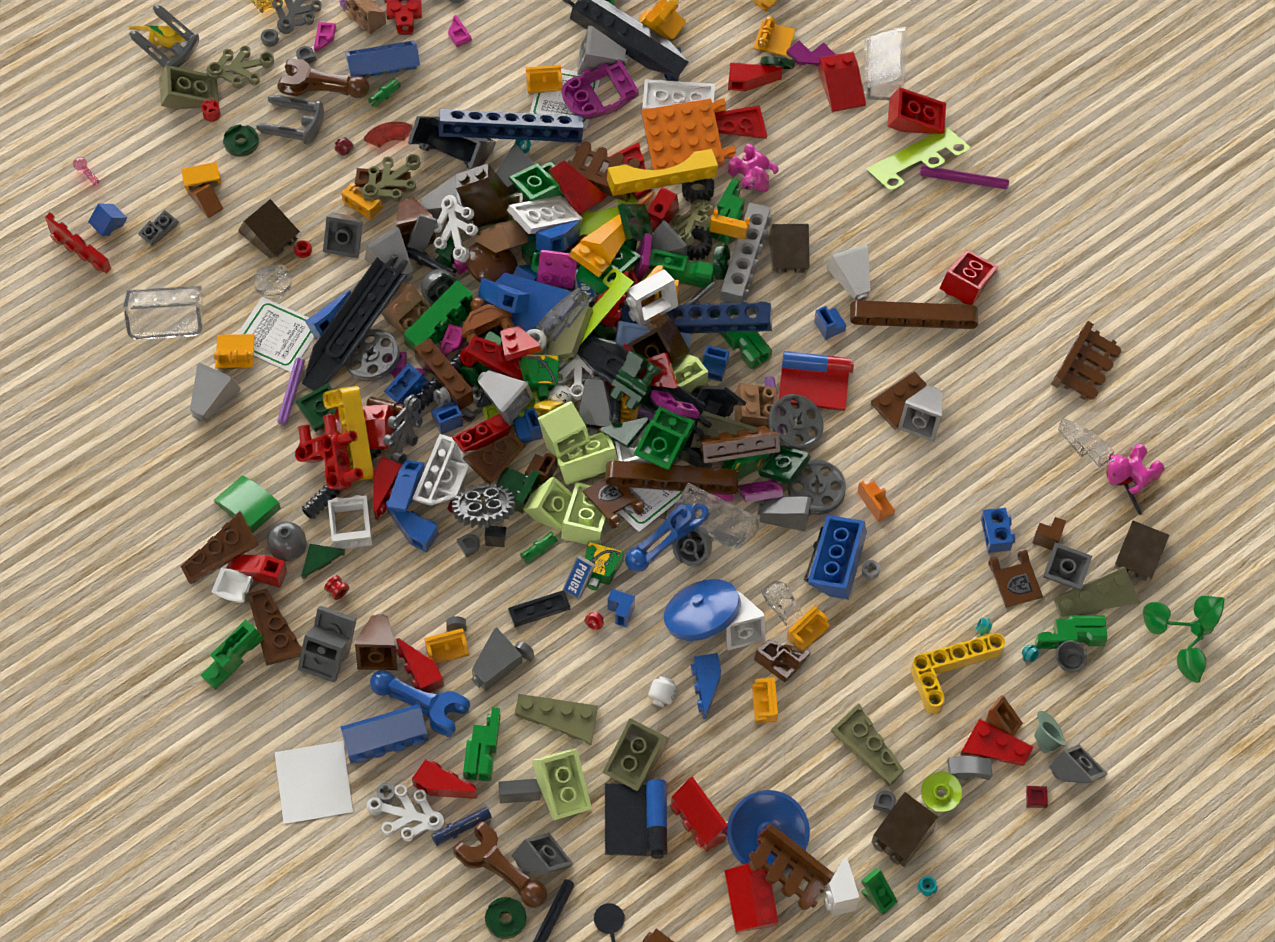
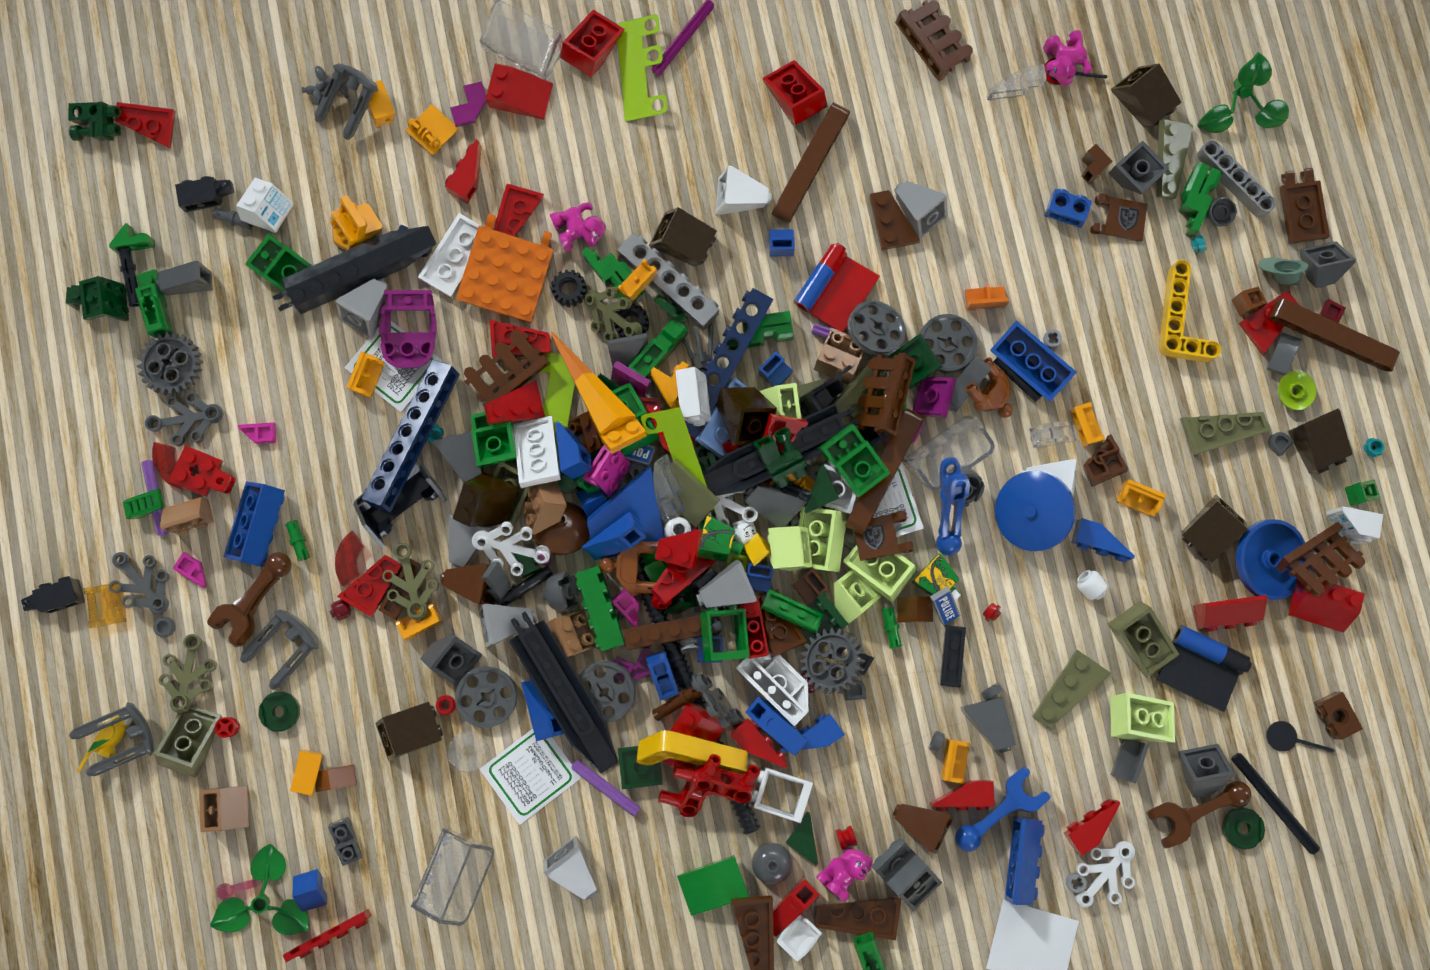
camera: 60 degrees left, 20 degrees up
(65, 176) = (289, 919): none -> green plant
(145, 133) = (224, 808): none -> medium nougat slope
(234, 351) = (532, 824): light orange hinge -> none
(306, 53) = (206, 599): dark grey tile -> none
(314, 594) = (843, 870): none -> dark pink animal
(327, 280) = (485, 686): none -> dark grey wedge
(367, 155) = (370, 588): none -> red wing
(440, 837) = (1140, 826): dark blue pin -> none
(445, 417) = (740, 633): none -> green window
(482, 743) = (1067, 768): green plate -> none
(511, 460) = (792, 611): none -> green tile
(563, 557) = (914, 609): none -> reddish brown piece
(622, 605) = (991, 578): blue piece -> none
(627, 179) = (538, 352): yellow arch -> none
(634, 221) = (591, 368): dark green plate -> none
(657, 320) = (718, 403): clear orange plate -> none
(663, 208) = (578, 329): red torso -> none
(666, 401) = (817, 440): magenta tile -> none
(771, 770) = (1214, 529): none -> dark brown slope
(786, 63) = (468, 141): dark green tile -> none
(788, 537) = (994, 394): none -> dark orange connector
(983, 626) = (1154, 270): teal plate -> none
(1012, 801) = (1334, 334): none -> reddish brown beam
(1111, 666) = (1245, 183): none -> light grey beam
(1120, 729) = (1303, 207): none -> reddish brown tile

